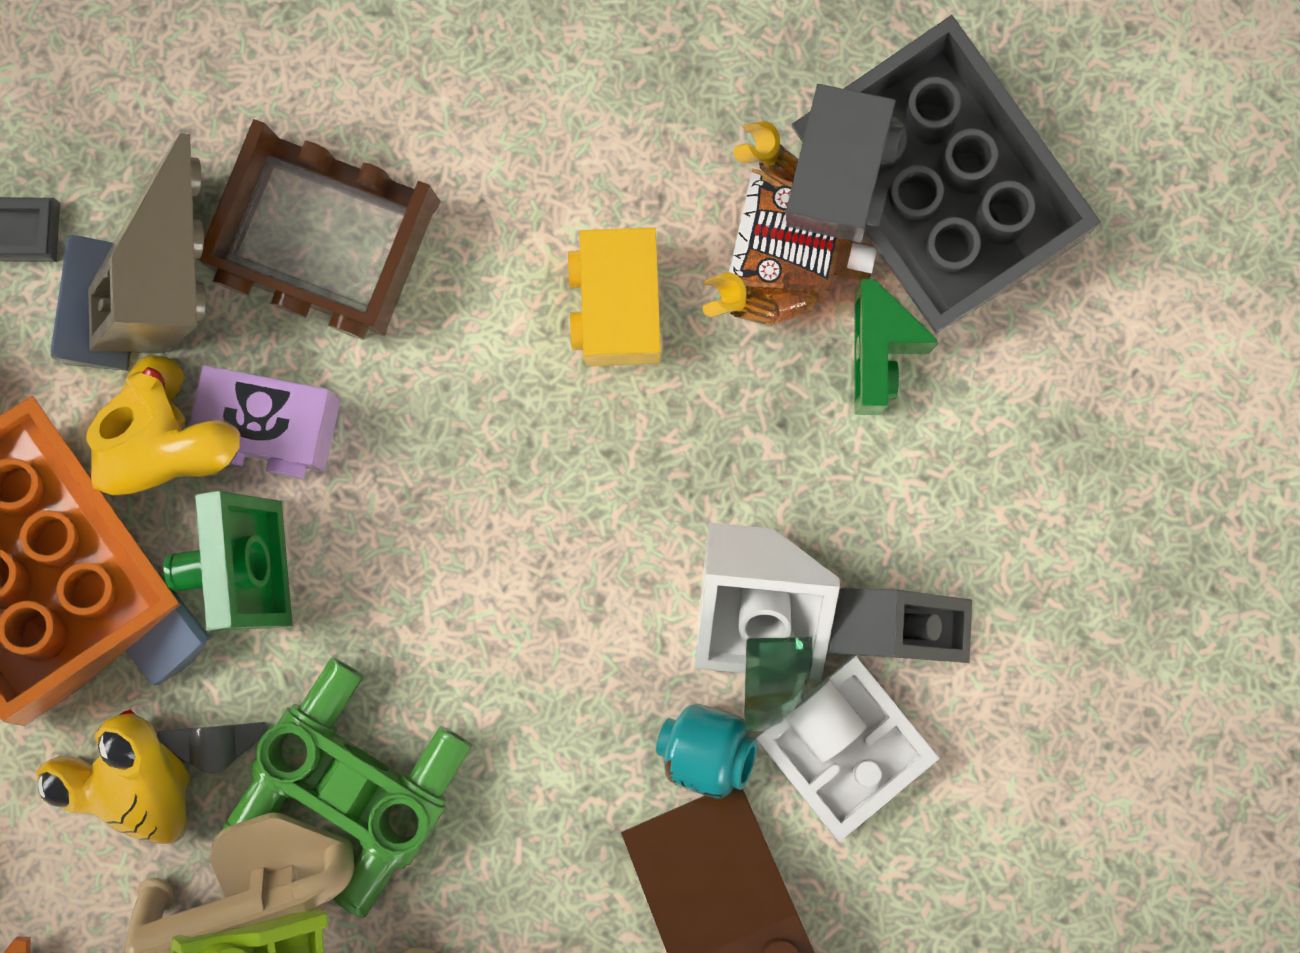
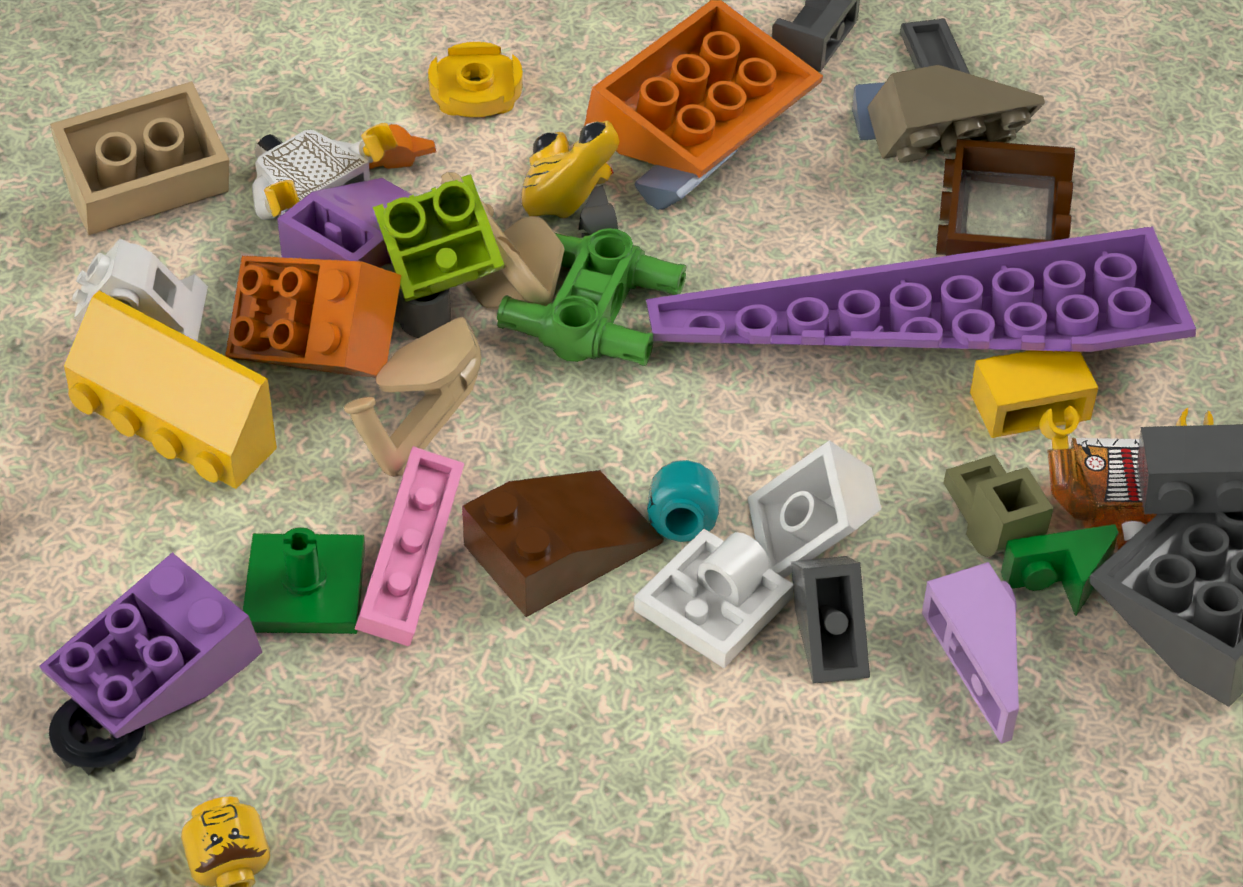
camera: 75 degrees right, 35 degrees down
(142, 439) = (823, 134): yellow head -> none
(237, 563) = (743, 199): green tile -> none
(275, 418) = (852, 205): lavender brick -> none
(505, 270) = (1022, 297): none -> medium lavender wedge
(775, 679) = (749, 511): clear green brick -> none
(804, 398) = (998, 503): none -> olive brick
(960, 467) = (977, 629): none -> lavender slope

